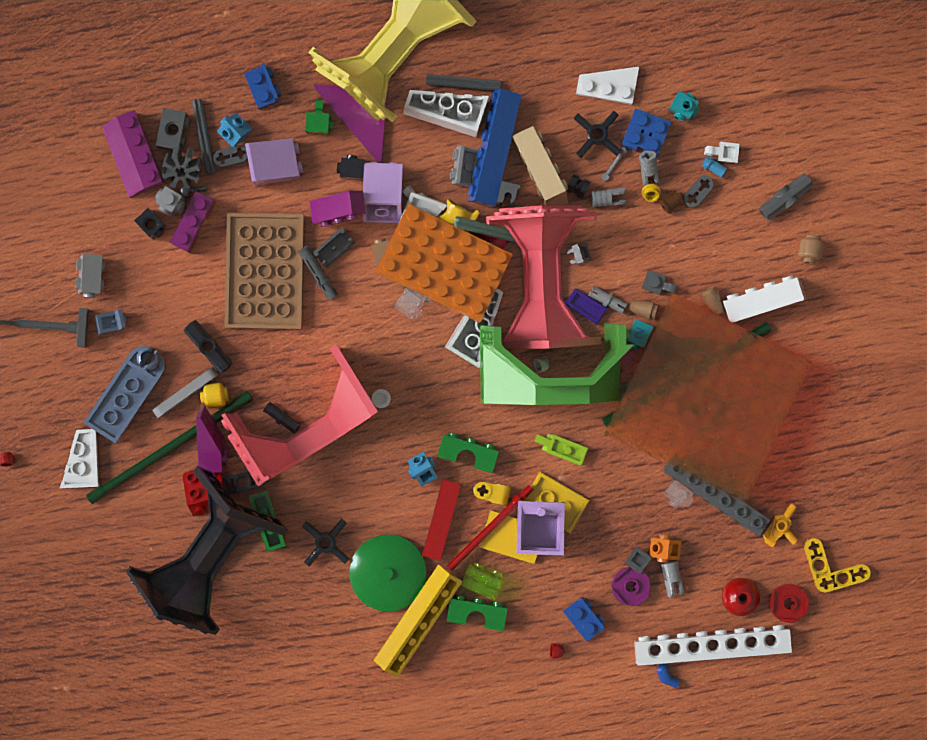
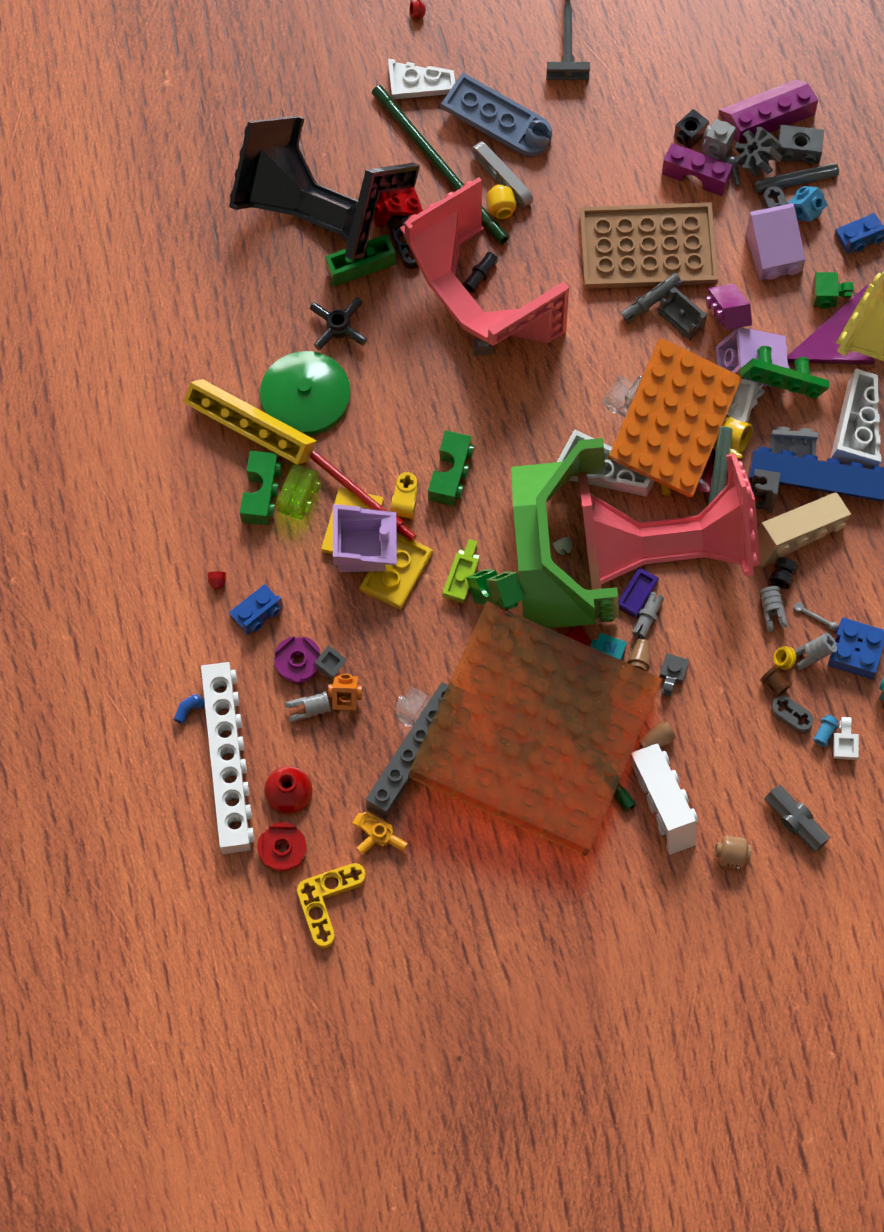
camera: 90 degrees right, 20 degrees down
(89, 281) = (627, 72): light grey brick -> none
(110, 322) = (576, 96): sand blue bracket -> none
(199, 338) = (564, 185): black piece -> none
(210, 442) = (436, 186): magenta slope -> none
(351, 168) = (778, 323): black brick -> none
(381, 398) = (509, 375): white tile -> none
(404, 182) = (794, 381): none -> green plate
(422, 469) = (429, 417): dark azure brick -> none
(441, 520) = (363, 443): red slope -> none
(581, 253) = (701, 580): dark grey tile -> none
(591, 140) = (846, 599): black bar -> none
(591, 421) = (498, 589): none -> green arch

